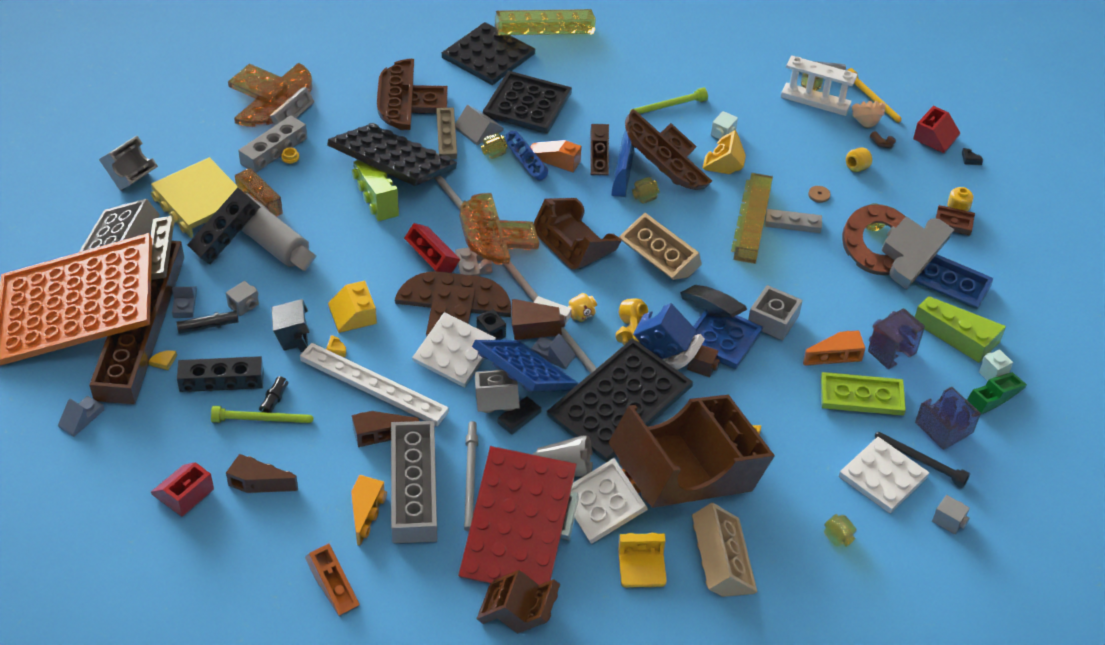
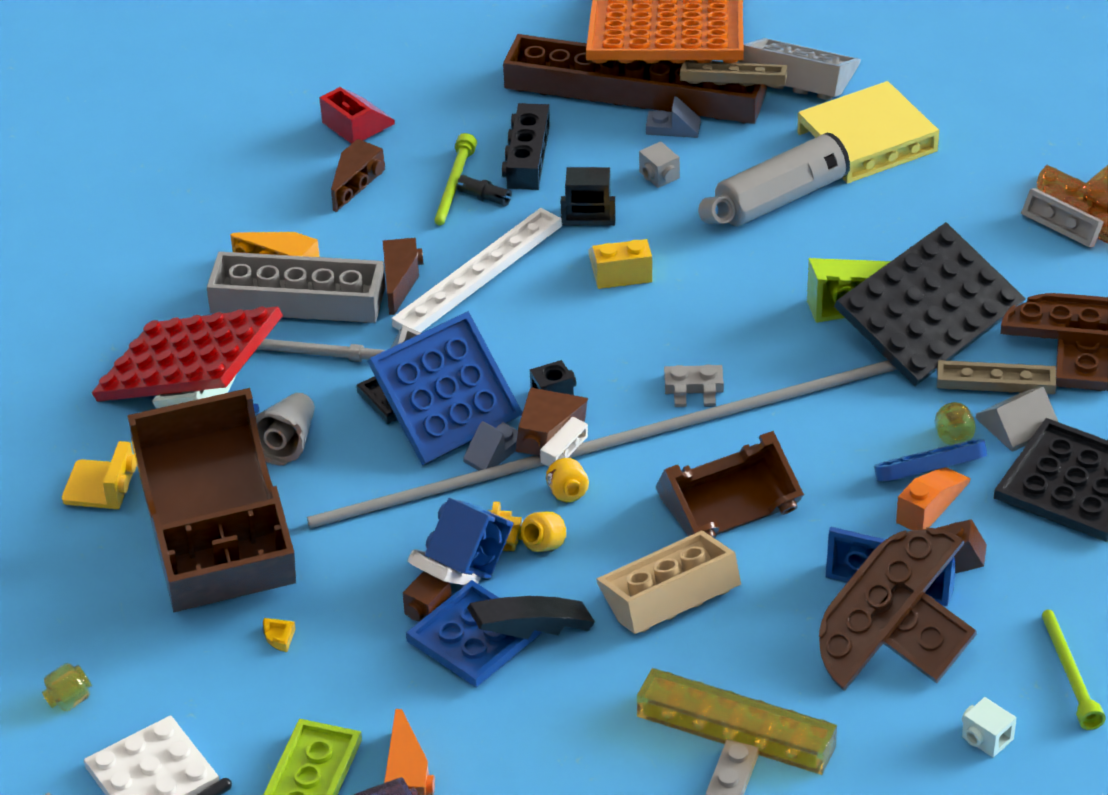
camera: 105 degrees right, 5 degrees down
(79, 415) = (494, 46): sand blue slope -> none
(127, 163) = (927, 58): light grey piece -> none
(163, 359) = (571, 108): yellow tile -> none
(215, 320) = (626, 144): black pin -> none
(223, 226) = (778, 132): black brick -> none
(260, 190) = (864, 180): clear orange brick -> none
(272, 143) = (979, 198): light grey brick -> none
(290, 155) = (955, 216): yellow plate -> none
(332, 579) = (188, 219): orange slope -> none
(336, 346) = (558, 247): yellow tile -> none
(432, 248) = (717, 334): red brick -> none
(450, 350) = (523, 340): white plate -> none
(454, 295) = (620, 355): reddish brown plate -> none
(489, 235) = (737, 388): clear orange plate -> none
(518, 601) = (78, 356): reddish brown bracket -> none
(623, 380) = (369, 490): black plate -> none
(645, 190) = (821, 588): clear yellow head -> none
(723, 552) = (82, 562): tan slope -> none
(727, 156) = (898, 712): yellow slope -> none
(775, 312) = (496, 693): light grey brick -> none

